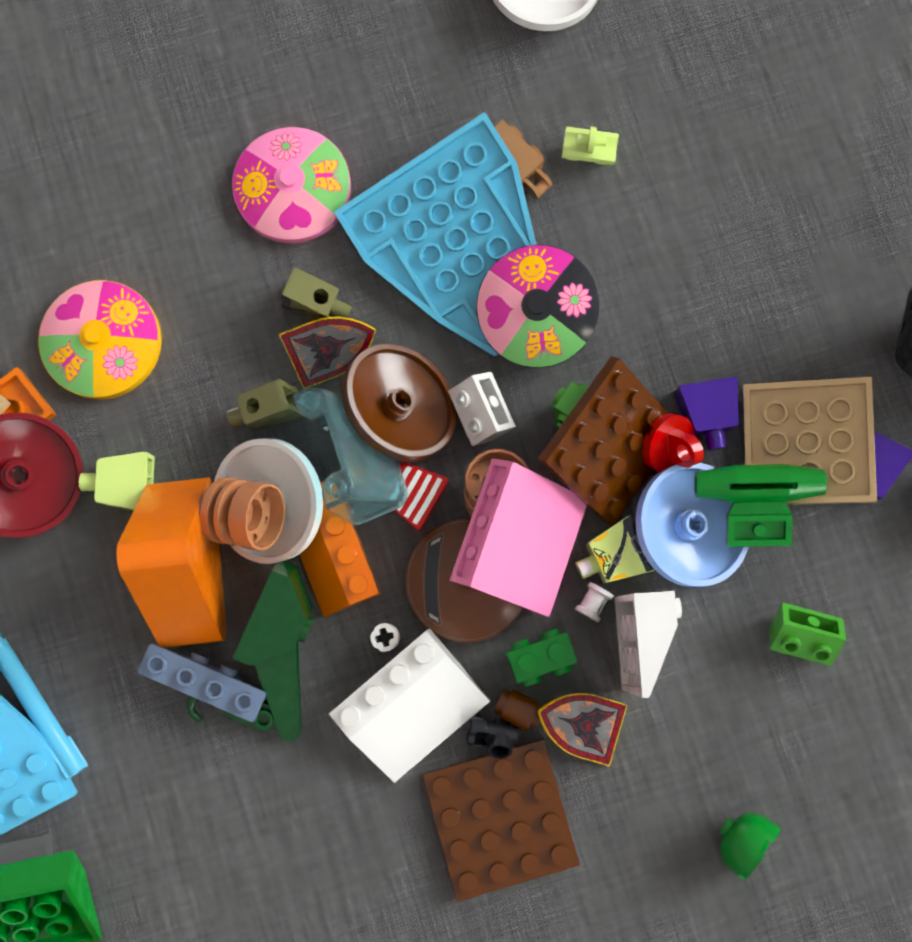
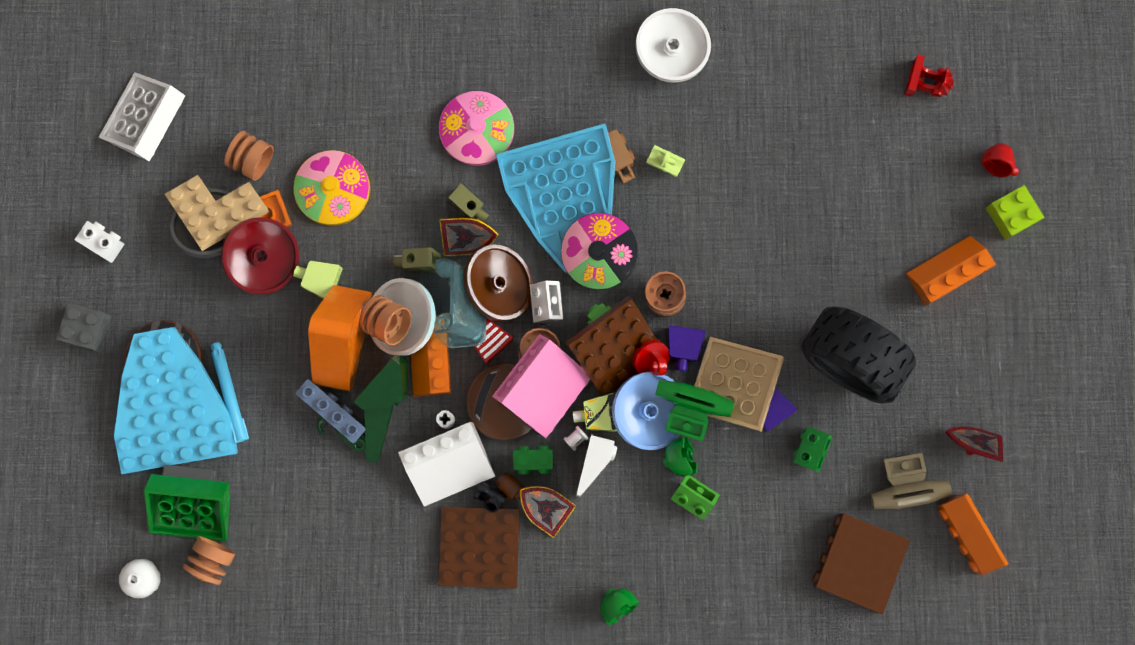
camera: 20 degrees right, 0 degrees up
(658, 323) = (668, 283): none -> nougat wheel
(763, 582) = (680, 458): none -> green cylinder

